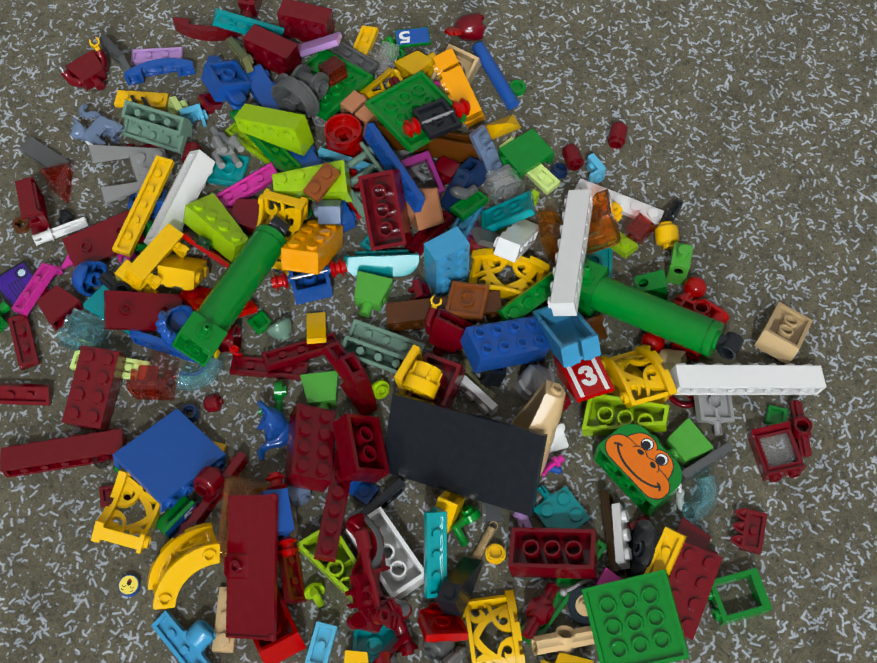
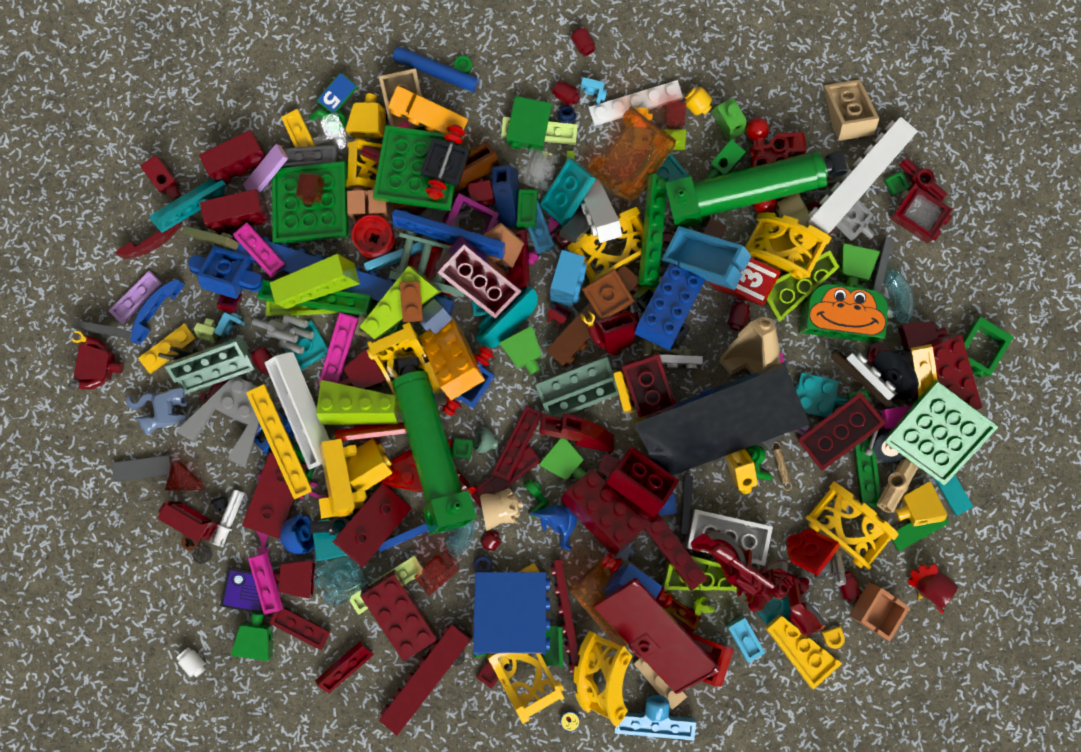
camera: 40 degrees left, 20 degrees up
(17, 234) = (197, 551): none -> clear smoke bush
(171, 322) = (407, 511): blue hair -> none
(204, 242) = (361, 429): clear green plate -> none
(208, 481) = (558, 604): dark red head -> none
(239, 379) = (500, 508): none -> tan hat
(261, 84) = (259, 249): none -> dark pink tile
(300, 91) = (310, 241): dark grey piece -> none
(316, 328) = (510, 415): yellow tile -> none
(380, 389) = (602, 418): lime plate -> none
(423, 380) = (645, 394): yellow piece -> none
(435, 551) = (766, 507): teal fence -> none
(459, 586) = (799, 512): black slope -> none
(463, 193) = (517, 204): dark grey arm -> none
(468, 27) = (372, 44): dark red piece -> none
(485, 148) = (503, 151): sand blue plate -> none
(495, 554) = (796, 465): yellow plate -> none
(502, 126) = (483, 113): yellow slope -> none
(532, 379) = (709, 312): light grey helmet -> none
(540, 611) = (867, 480): dark red axle -> none
(571, 253) = (654, 186): white brick -> none
(674, 210) = (685, 74): black axle -> none
(751, 530) = (951, 289): dark red plate -> none

